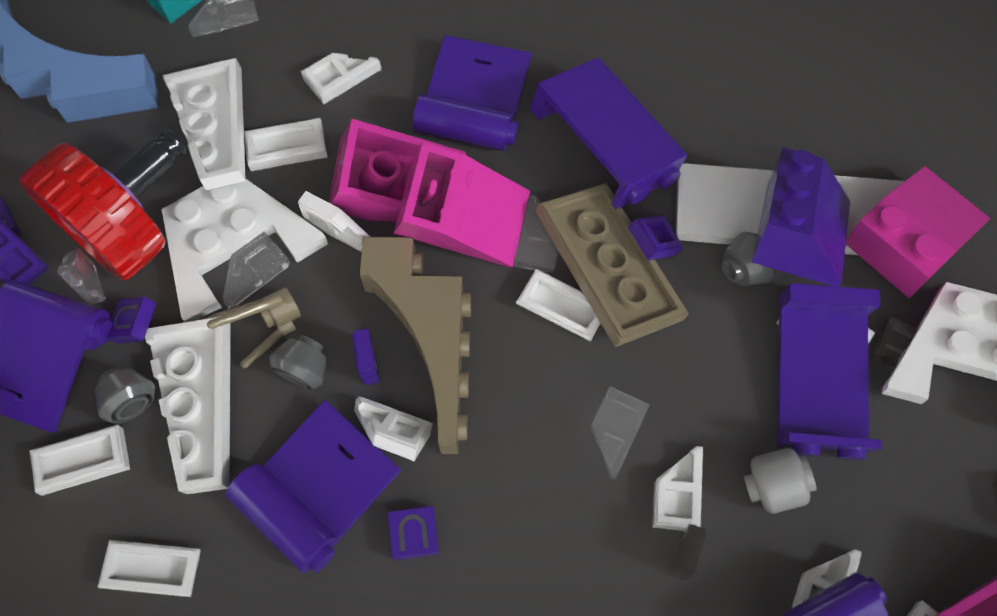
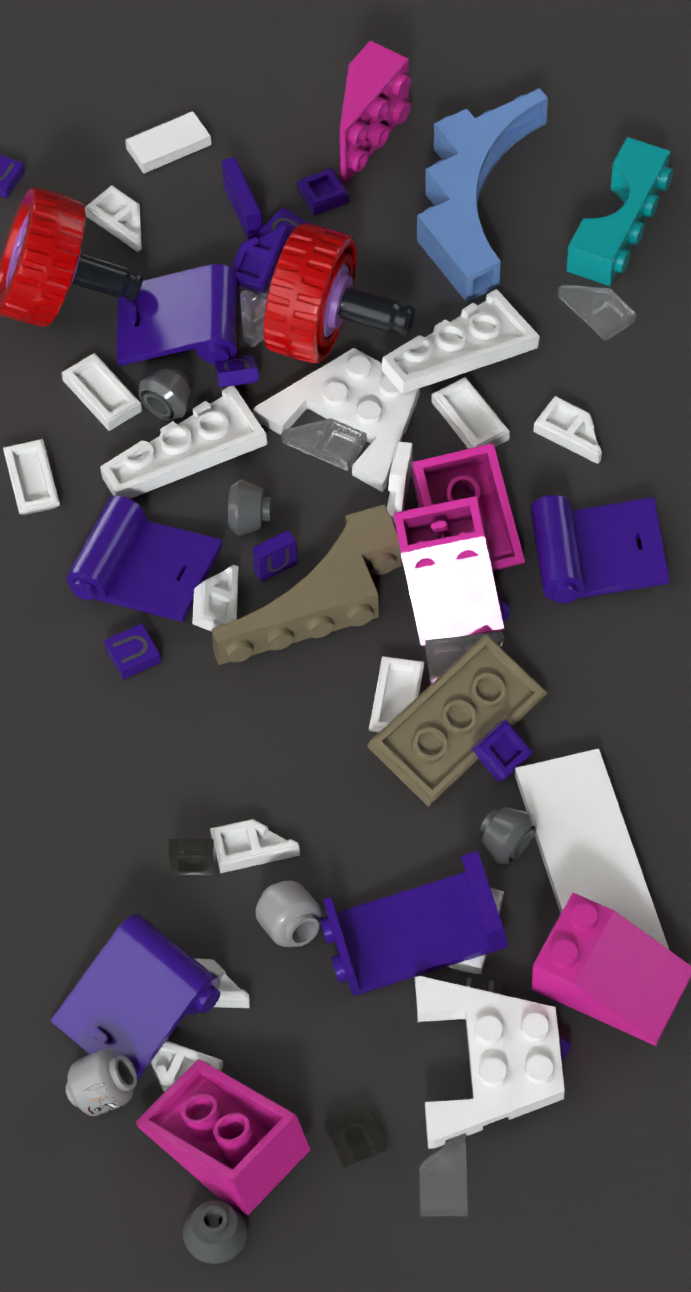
camera: 70 degrees right, 10 degrees down
(275, 309) = (291, 472): dark tan plant -> none
(613, 128) = (597, 669): dark purple panel -> none
(617, 426) = (290, 777): clear tile -> none
(803, 219) = (558, 847): dark purple slope -> none

